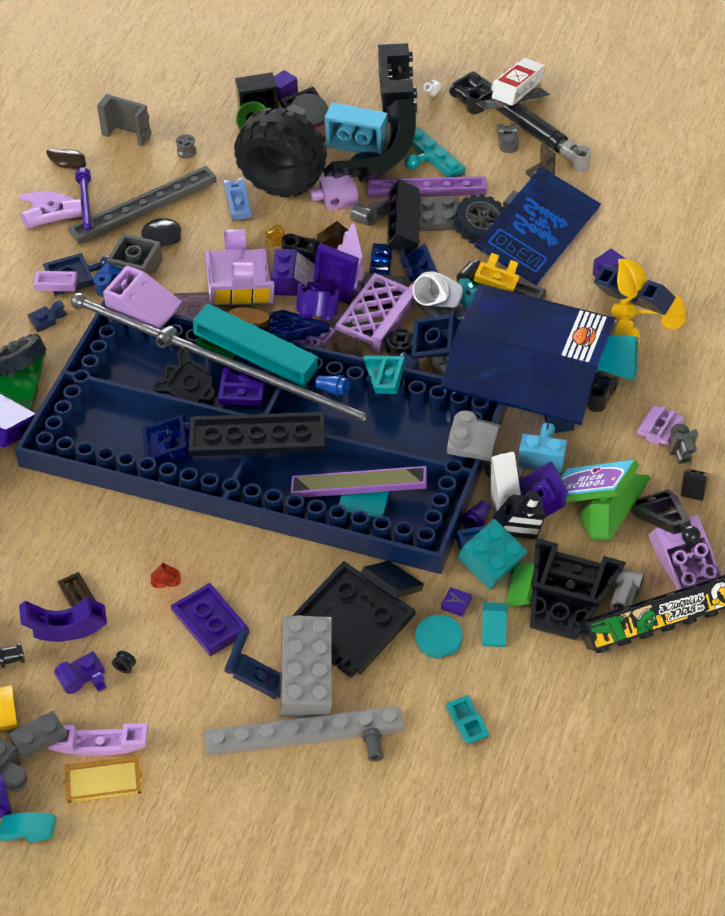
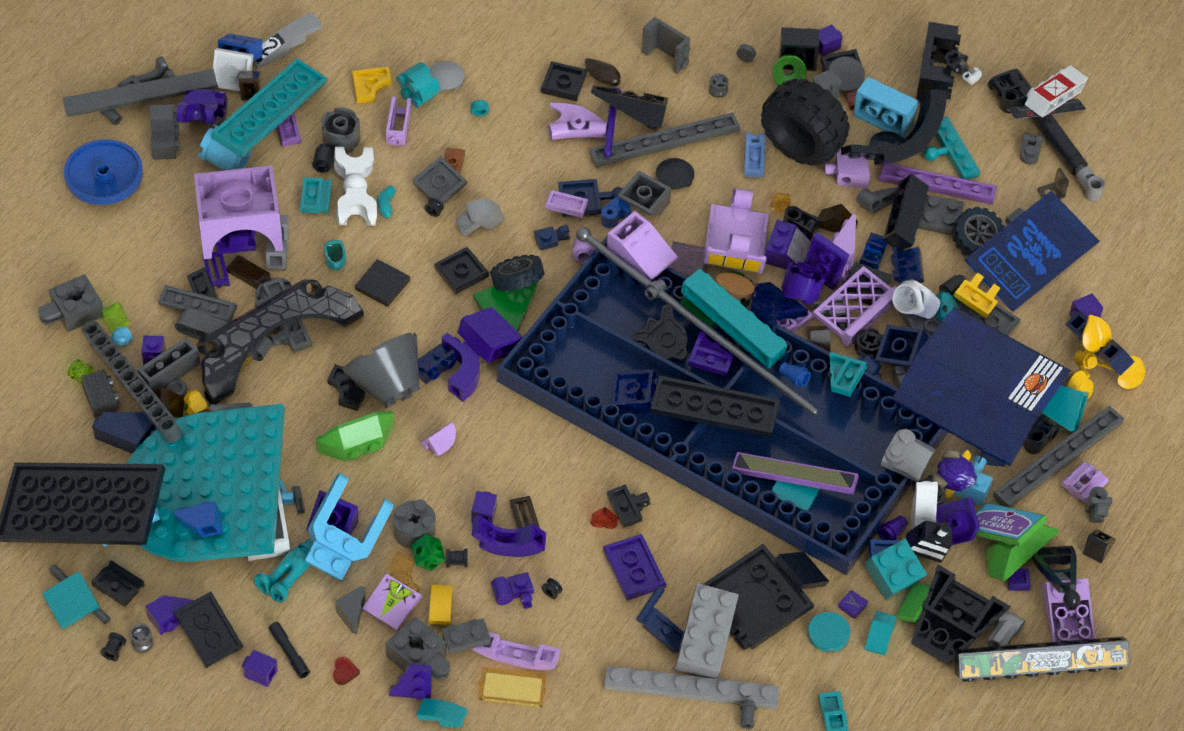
camera: 10 degrees right, 5 degrees up
(29, 174) = (563, 81): none -> black tile
(31, 590) = (484, 505): none -> dark purple brick
(81, 319) = (581, 251): none -> lavender head
(116, 180) = (646, 109): none -> black wedge
(187, 558) = (627, 505): none -> black hinge
(206, 112) = (746, 53): none -> dark grey tile
(416, 73) = (957, 61): none -> black piece
(527, 442) = (955, 472): none -> dark purple hair
(625, 408) = (1058, 457): none -> dark grey plate
(625, 537) = (1019, 581): none -> dark purple tile

